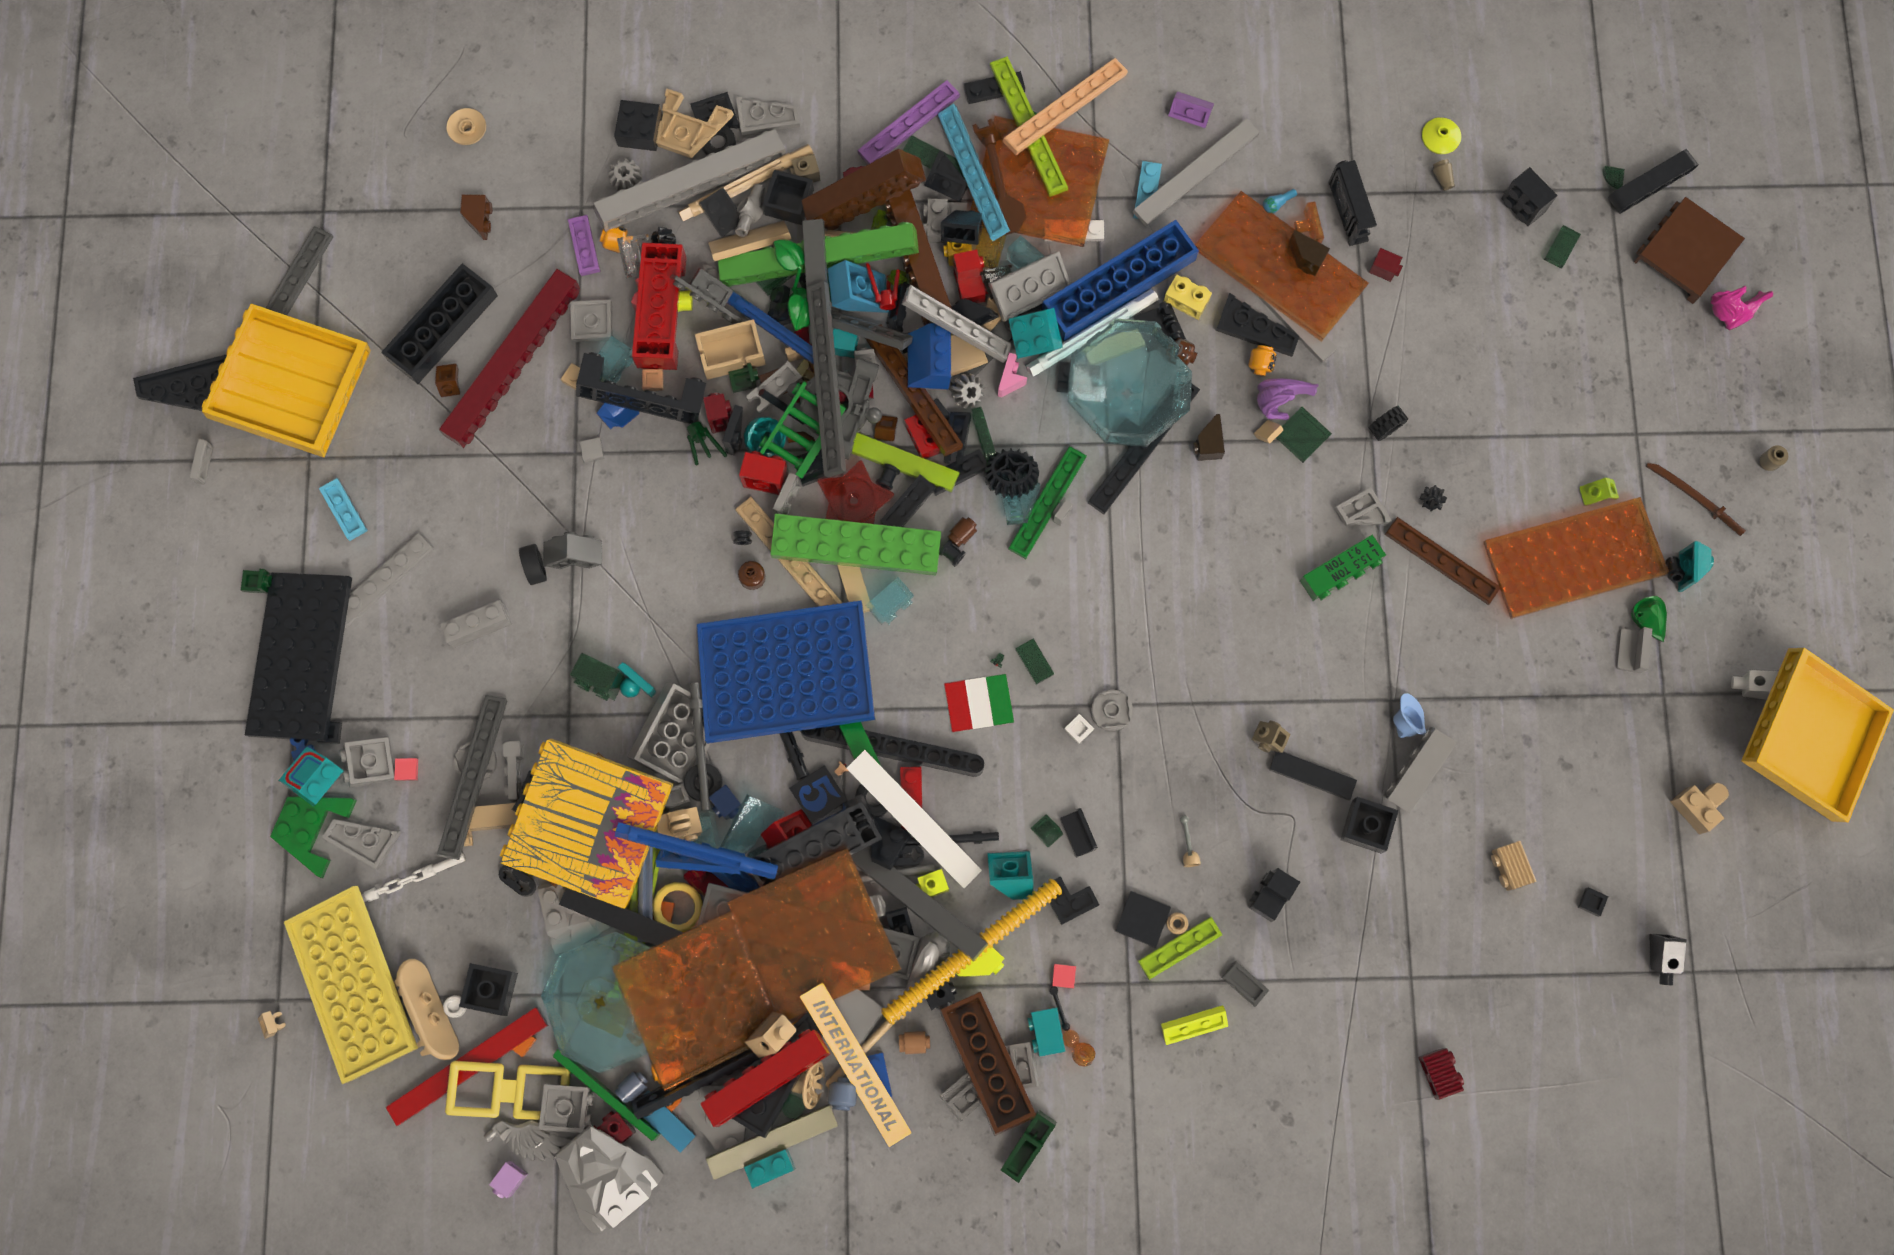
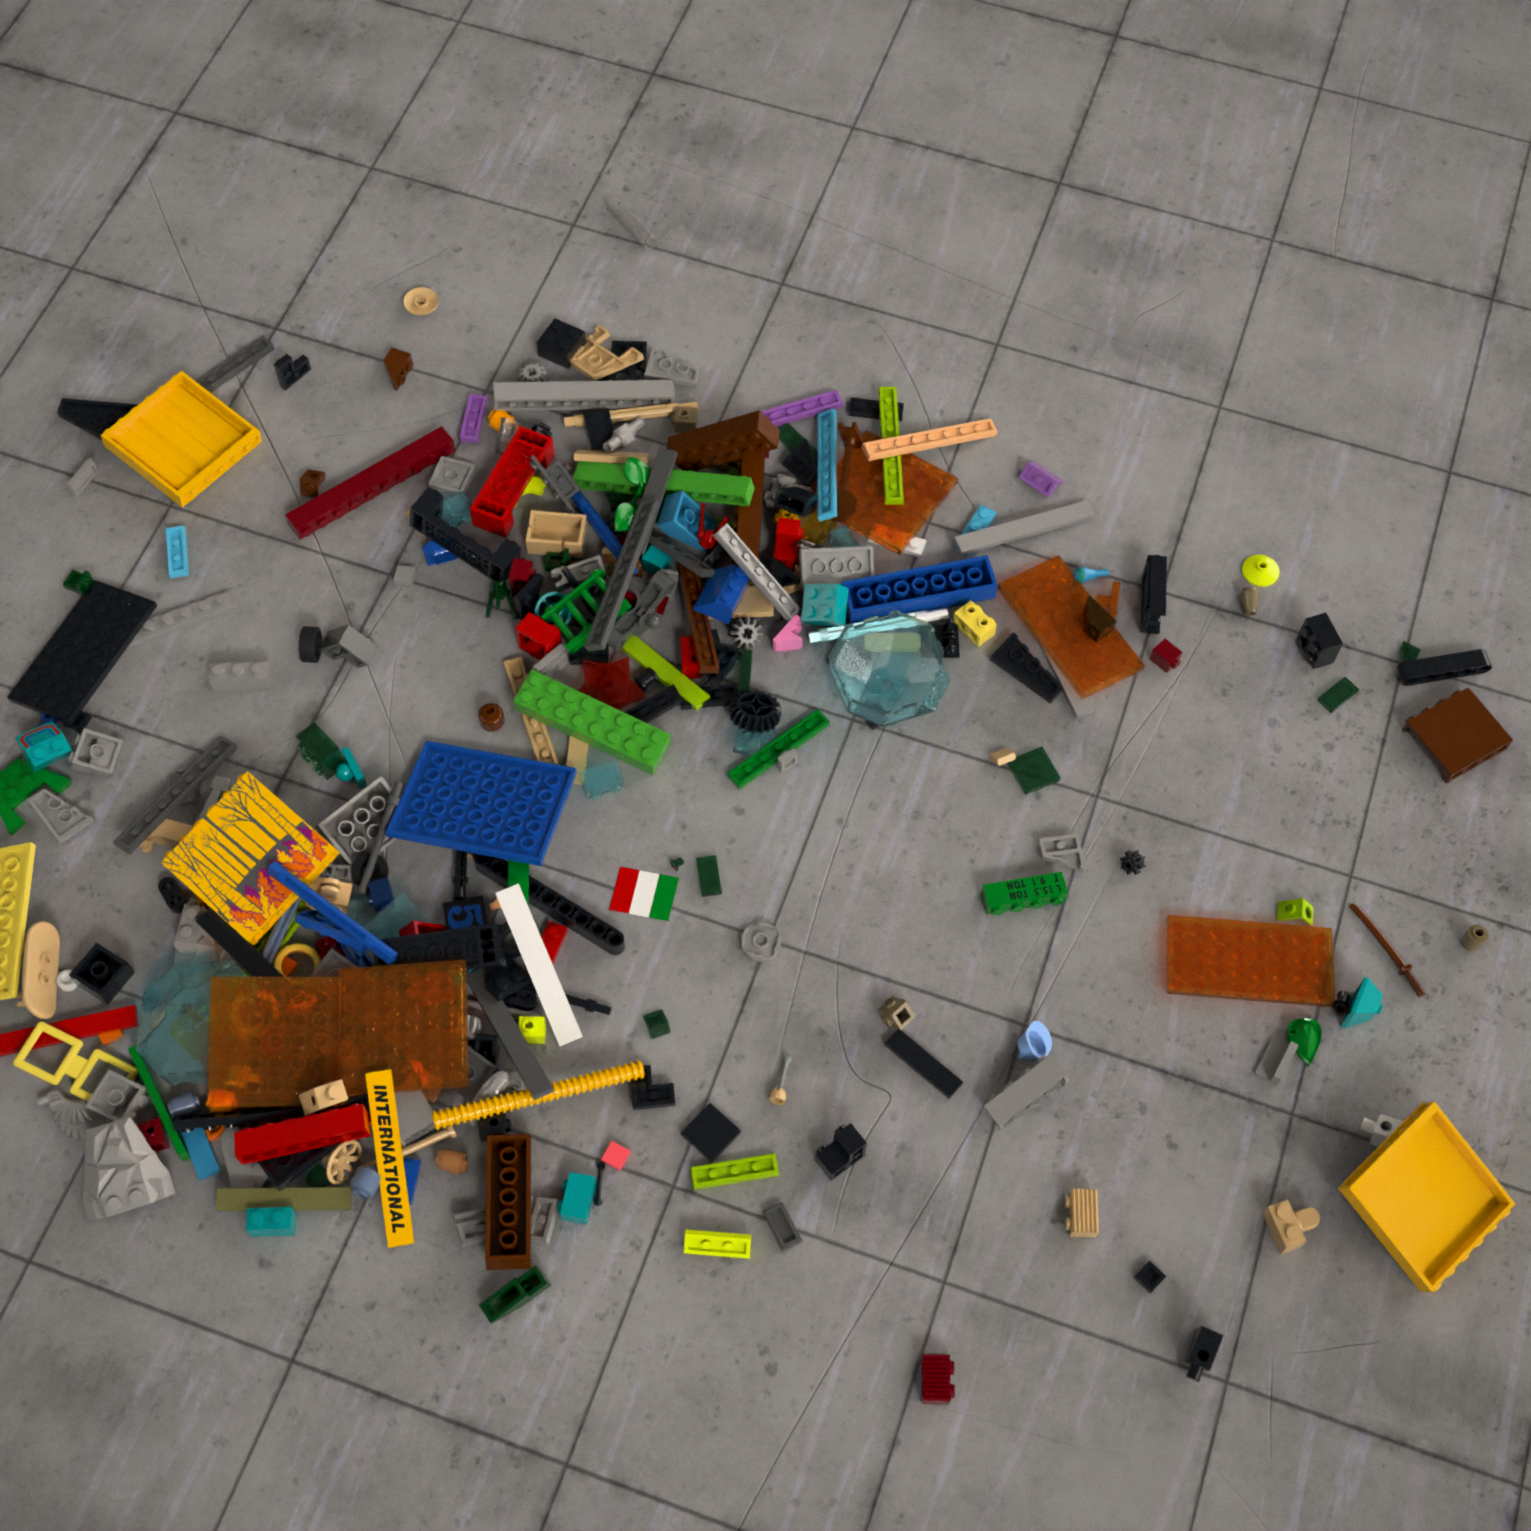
camera: 20 degrees right, 15 degrees down
(364, 259) = (289, 371): none -> black plate
(406, 769) = (125, 772): coral tile -> none
(427, 871) = (101, 860): white piece -> none
(439, 323) = (326, 437): black brick -> none
(507, 1180) = (37, 1143): lavender brick -> none
(652, 379) = (483, 537): light nougat tile -> none
(742, 537) = (498, 685): black bush -> none
(785, 197) = (655, 431): black piece -> none
(886, 428) = (662, 641): reddish brown slope -> none
(952, 553) = (674, 760): black bush -> none
(962, 531) = (691, 745): reddish brown brick -> none
(984, 965) = (544, 1116): neon yellow slope -> none
(1011, 873) = (606, 1046): teal slope -> none
(1071, 1040) = (602, 1230): clear orange plate -> none
(1078, 833) = (683, 1035): black panel -> none
(1079, 729) = (723, 945): white plate -> none
(1126, 470) = (873, 739): black tile -> none
(1177, 916) = (741, 1141): tan plate -> none
(1186, 351) = (953, 665): reddish brown head -> none
(1210, 441) = (945, 746): dark brown slope -> none
(1262, 360) = (1021, 696): light orange head -> none
(1278, 392) = (1022, 725): medium lavender hair -> none
(1369, 825) = (957, 1123): black brick -> none
(1388, 423) = (1114, 784): black tyre -> none
(1442, 561) = (1122, 921): reddish brown tile -> none
(1730, 309) = (1481, 800): dark pink hair -> none

